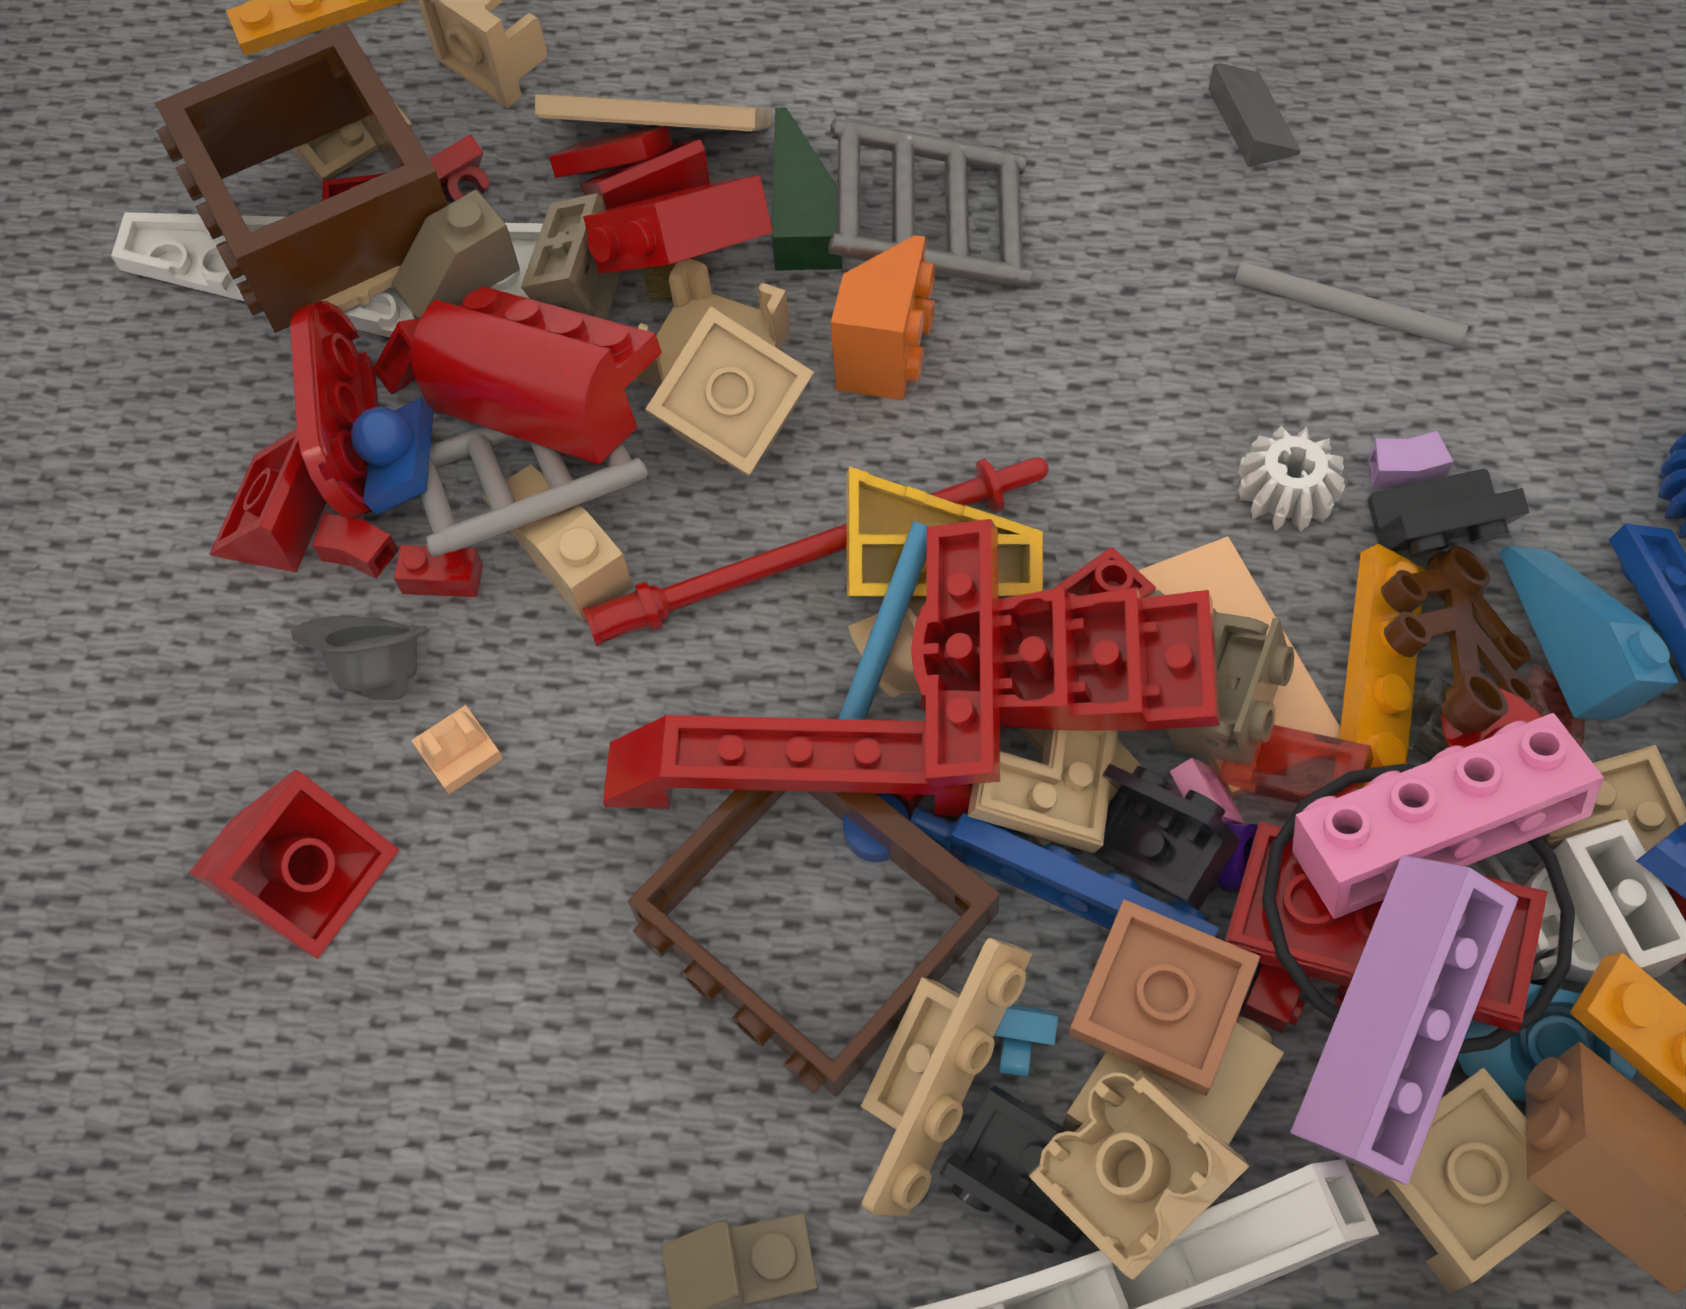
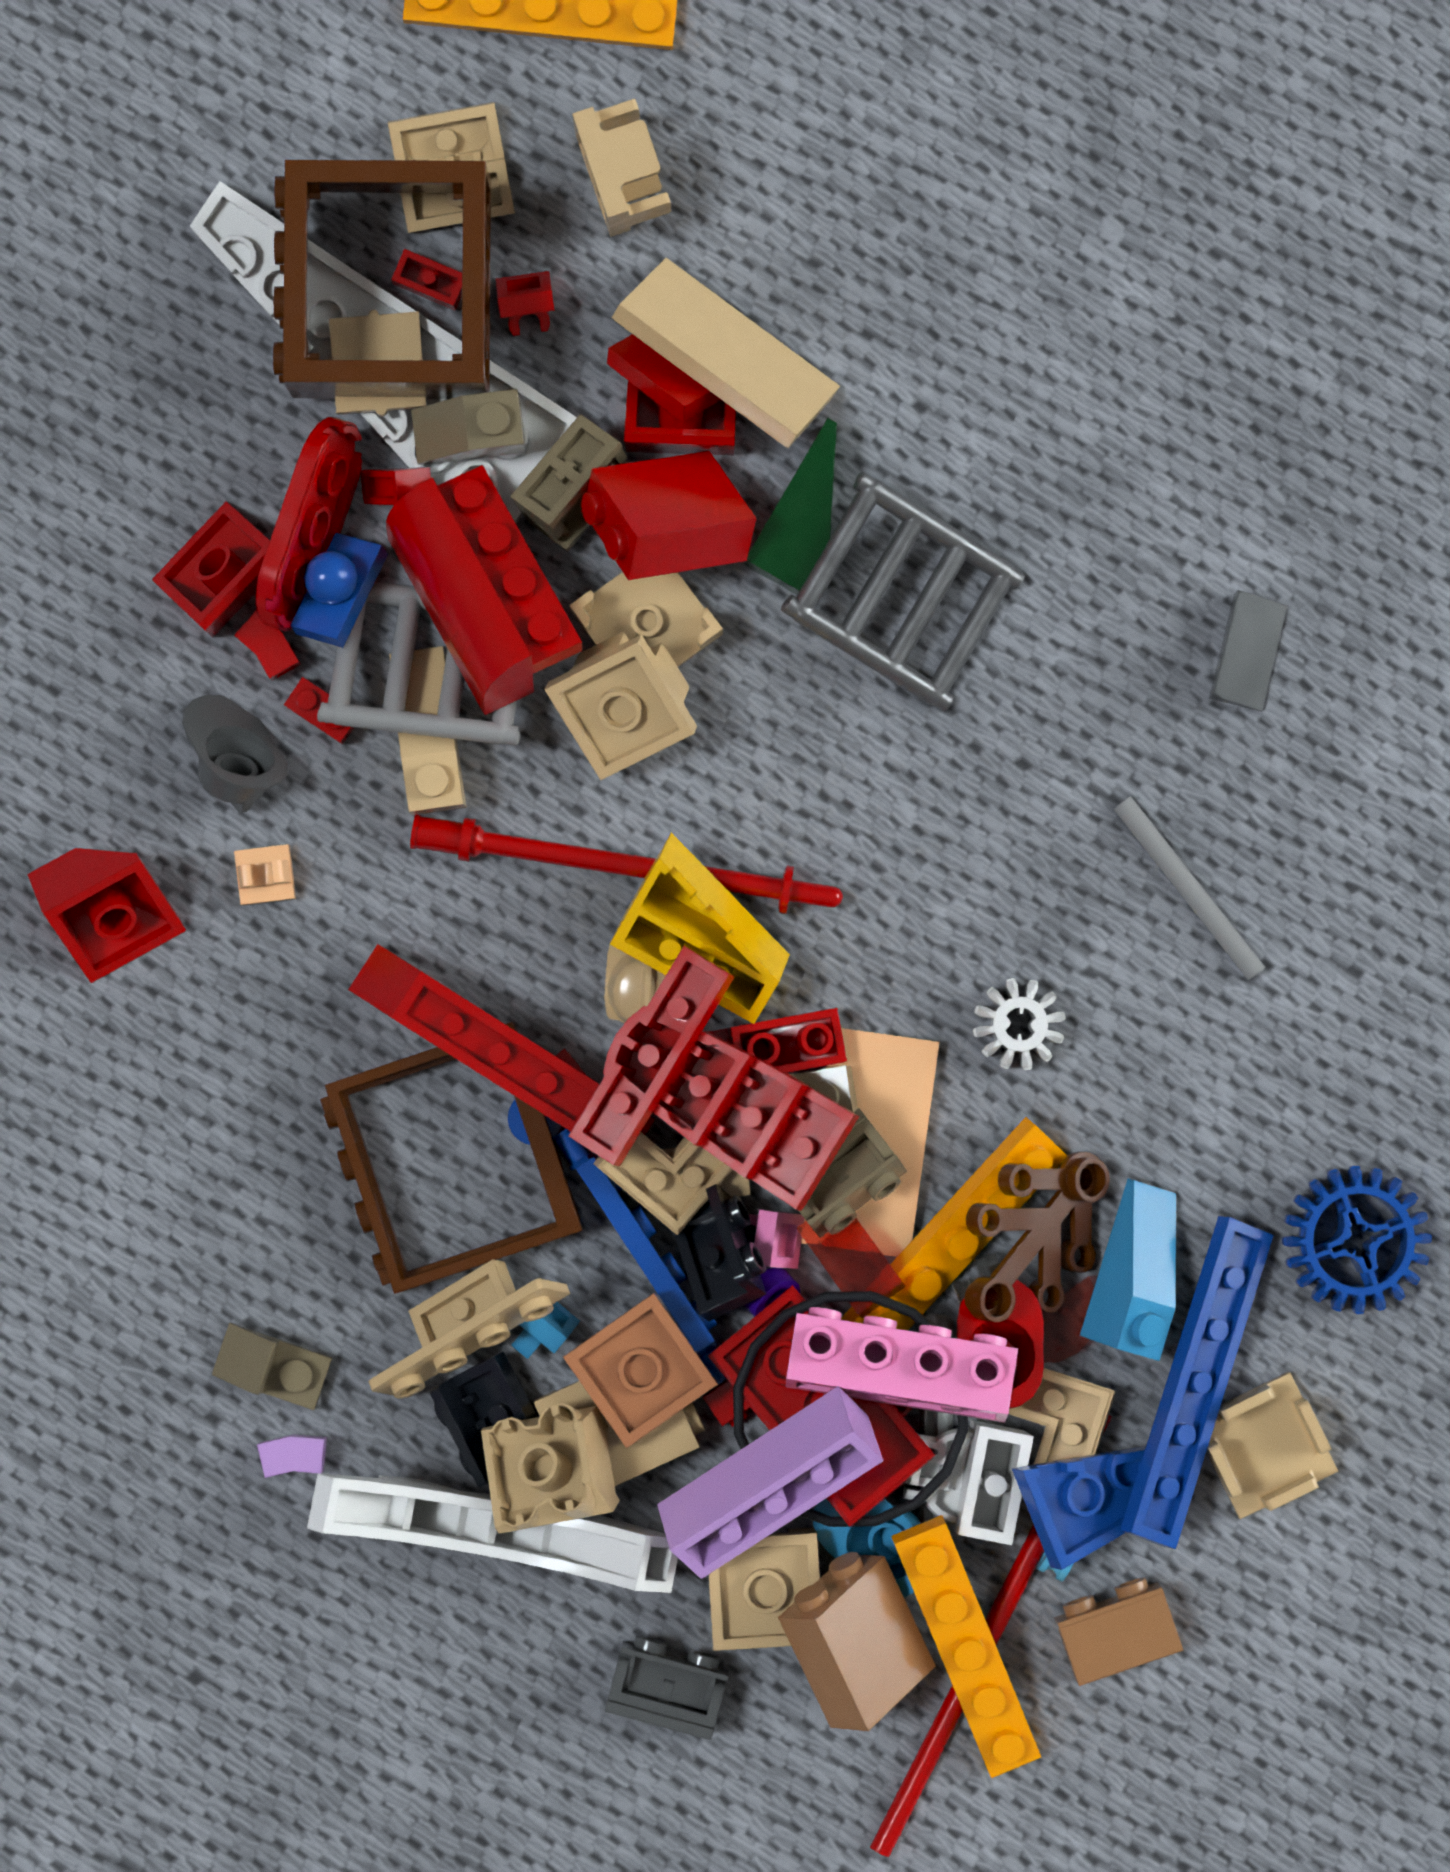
camera: 25 degrees right, 25 degrees up
(881, 321) = (783, 700): orange slope -> none
(887, 624) = (615, 989): dark azure bar -> none
(1408, 460) = (1122, 1060): lavender piece -> none
(1444, 509) = (1108, 1124): black bracket -> none

